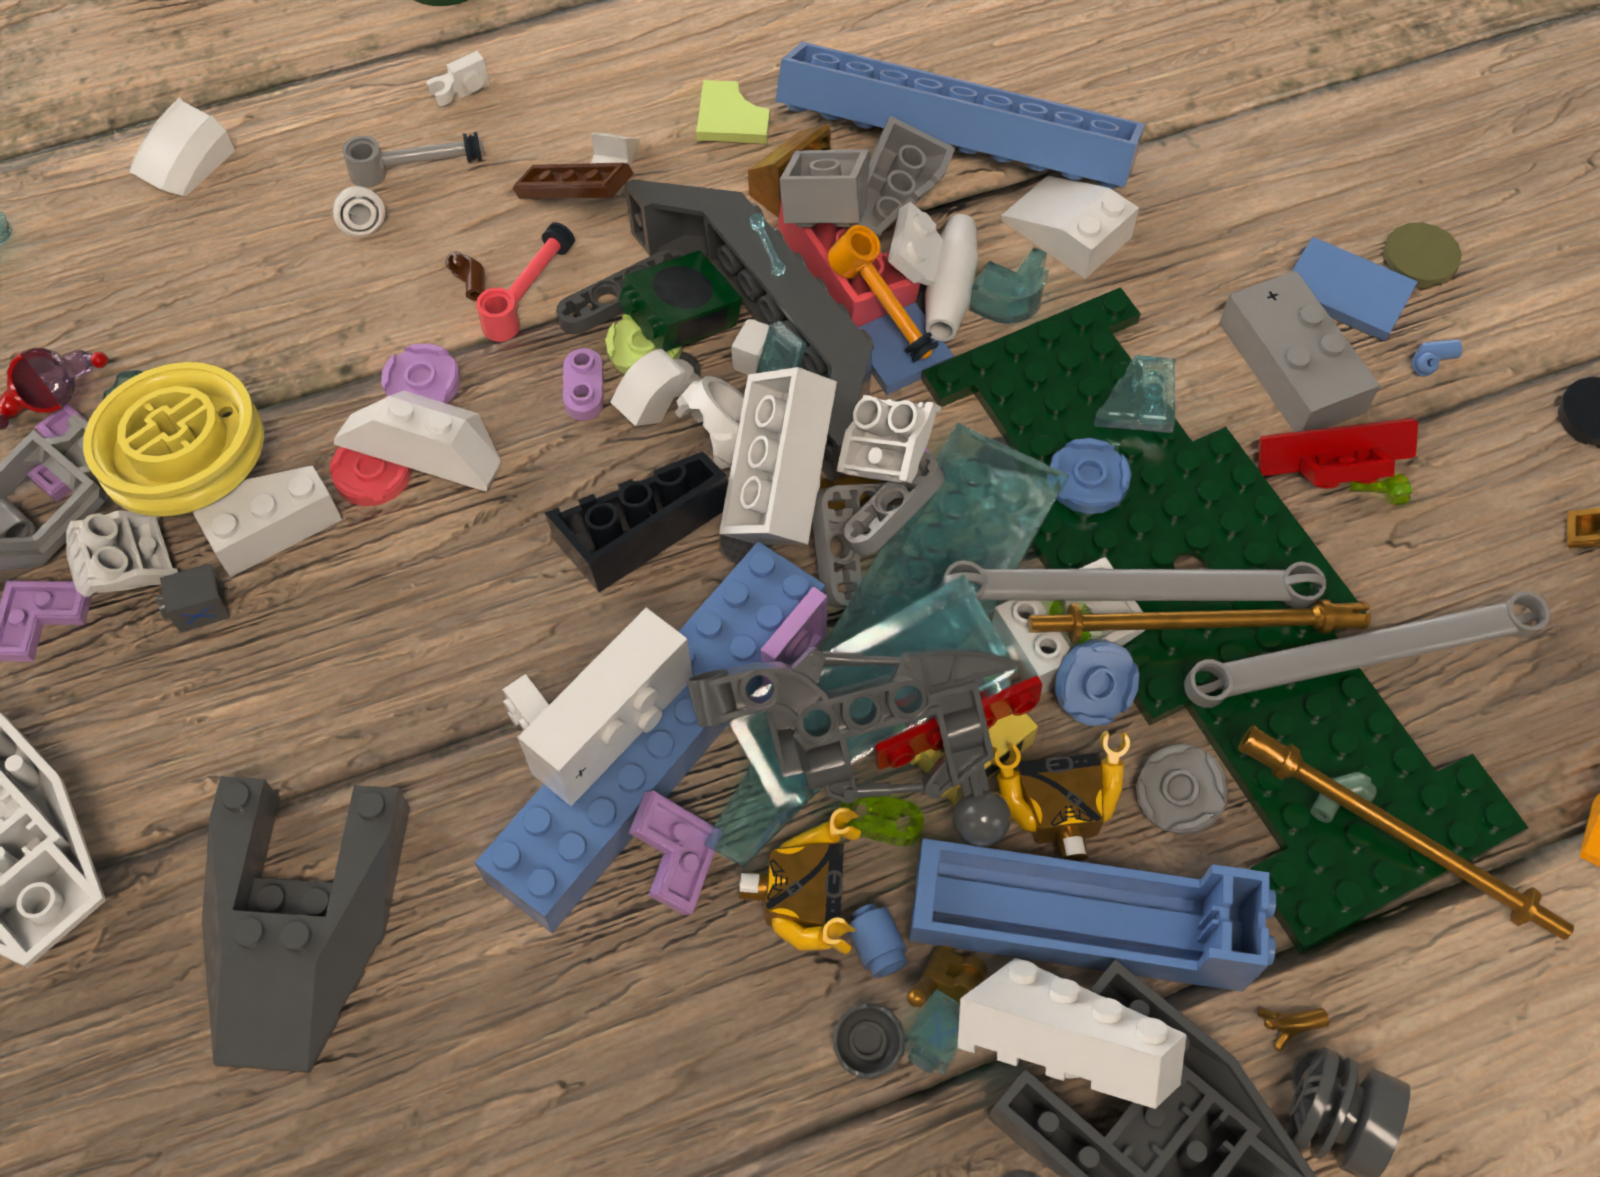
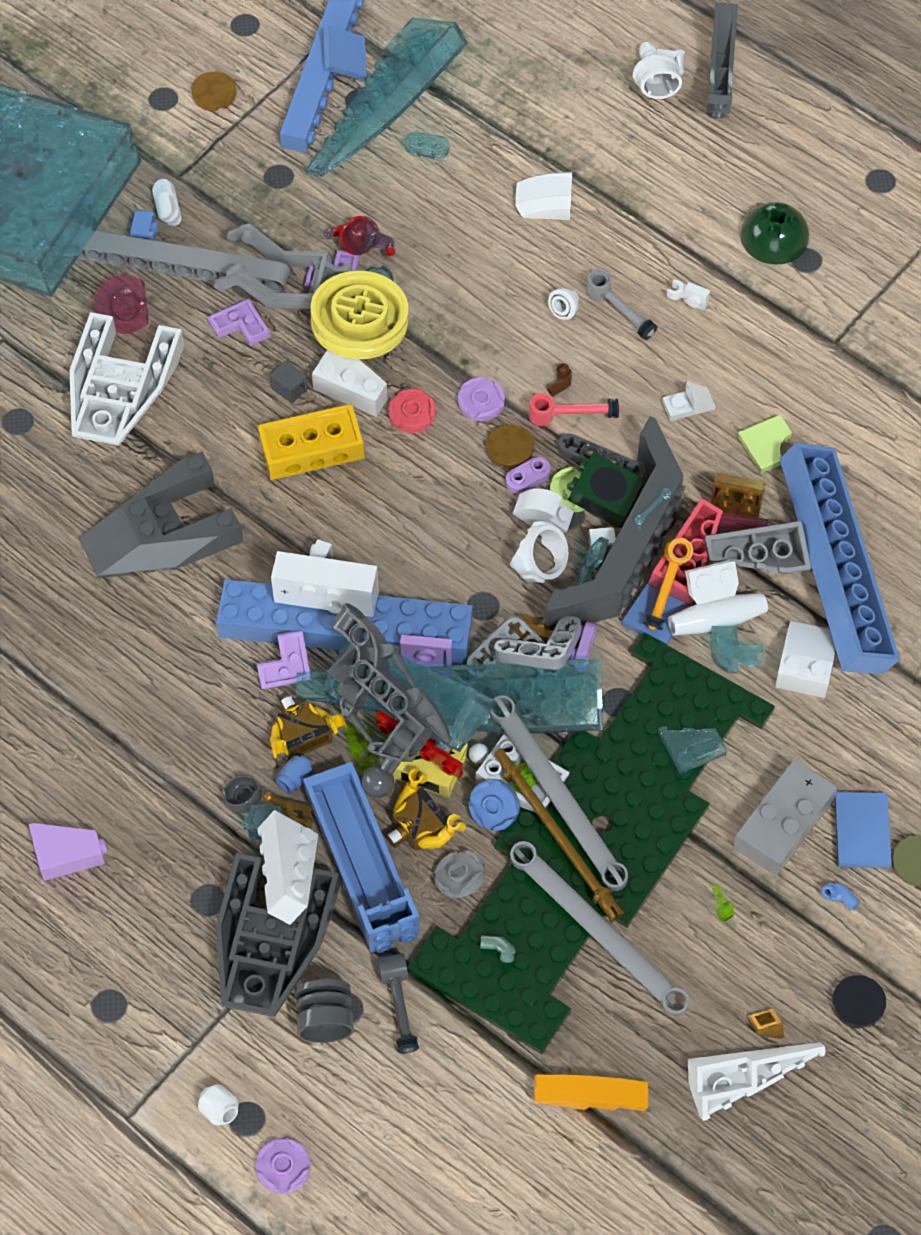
camera: 60 degrees right, 0 degrees up
(116, 552) = (290, 334): white slope -> none
(322, 618) = (311, 441): none -> yellow brick
(425, 438) = (442, 423): white wedge -> none
(522, 381) = (509, 446): none -> pearl gold tile
(573, 180) = (646, 391): reddish brown tile -> none
(640, 520) = (455, 546): black wedge -> none
(778, 457) = (521, 585): white brick -> none
(825, 187) = (712, 512): light grey slope -> none
(886, 439) = (562, 626): white slope -> none
(1096, 475) = (623, 745): medium blue tile -> none
(1288, 763) = (493, 906): pearl gold bar -> none
(1293, 1023) = (363, 978): pearl gold bar -> none
(1304, 971) = (394, 971): none -> dark grey piece
(1340, 453) = (728, 869): red bracket -> none

